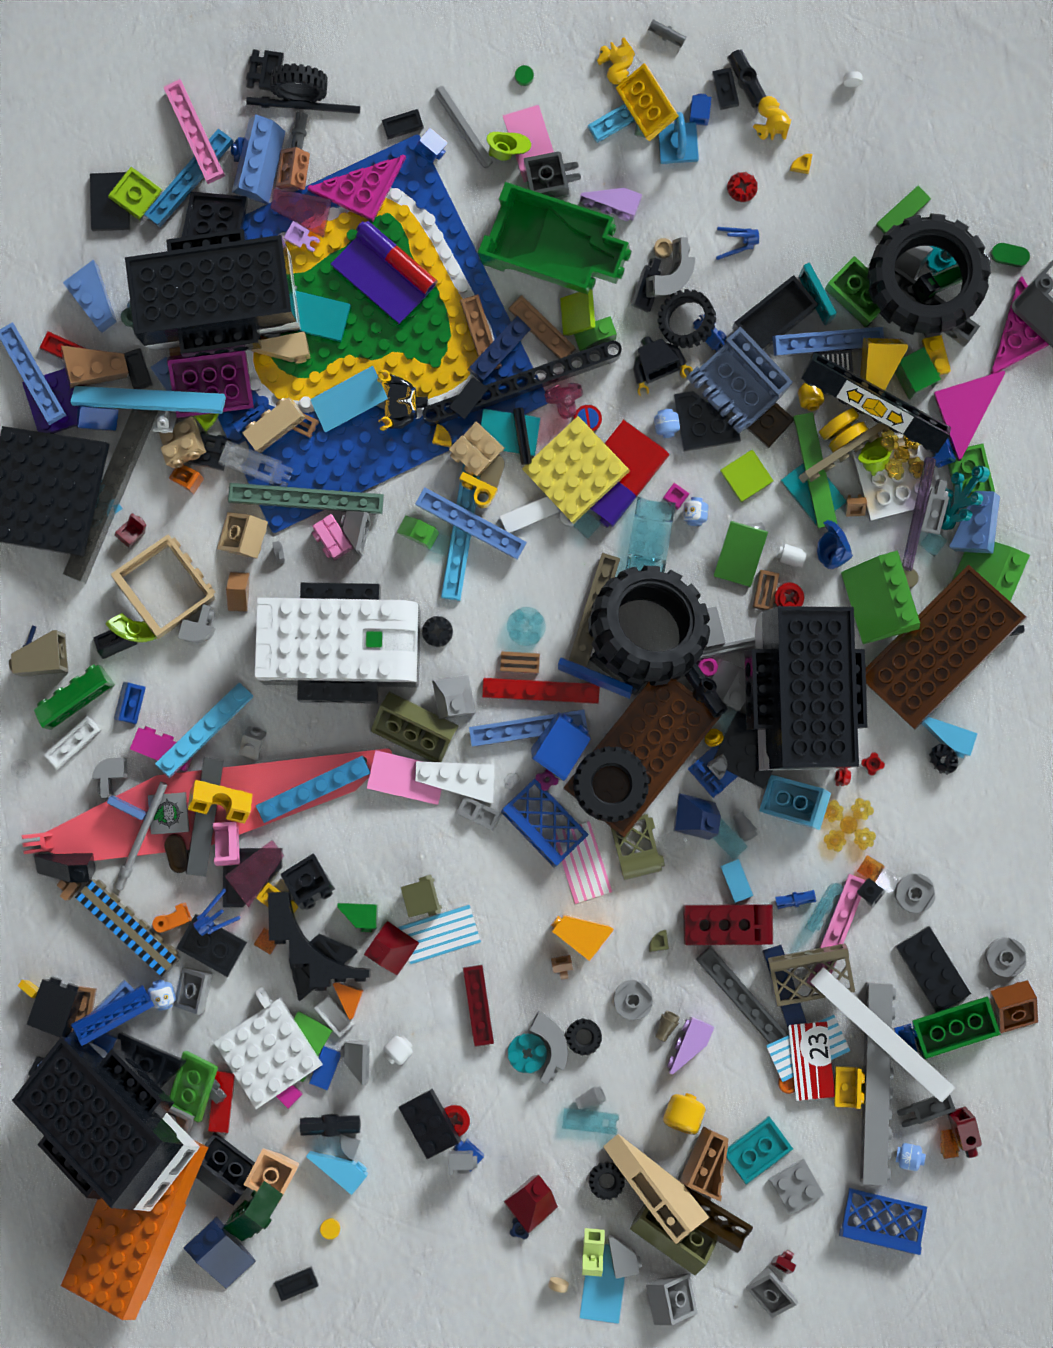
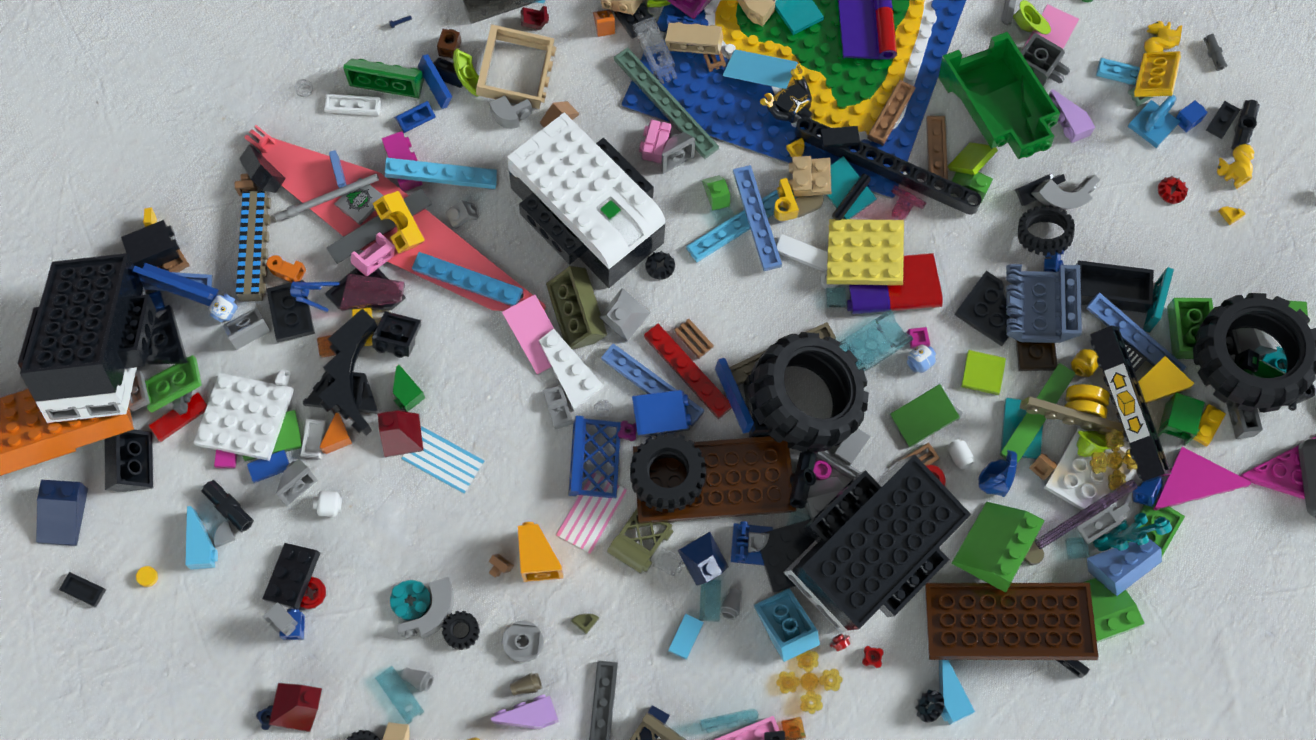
camera: 45 degrees right, 15 degrees down
(41, 656) = (394, 33): dark tan slope -> none
(97, 623) = (447, 49): none -> reddish brown brick
(106, 771) = (353, 140): light grey brick -> none
(115, 661) = (434, 81): none -> blue tile
(176, 853) = (336, 230): dark brown tile -> none
(242, 535) = (601, 86): tan slope -> none
(254, 1214) = (110, 502): dark green wedge -> none
(273, 1169) = (152, 495): light nougat slope -> none
(278, 551) = (612, 117): light grey tile -> none
(421, 897) = (457, 418): olive plate -> none
(478, 1005) = (414, 532): dark red plate -> none
(499, 349) = (893, 131): dark blue plate -> none
(535, 620) = (724, 309): clear light blue plate -> none
(590, 416) = (912, 232): piece -> none
(657, 361) = (996, 238): black torso -> none
(663, 248) = (1075, 177): tan tile -> none
(666, 423) = (961, 283): light blue head -> none
(713, 738) = (774, 520): yellow plate -> none
(749, 237) = (1145, 223): blue plant -> none
(757, 932) = (661, 686): dark red hinge -> none
(795, 899) = (714, 693): blue pin -> none

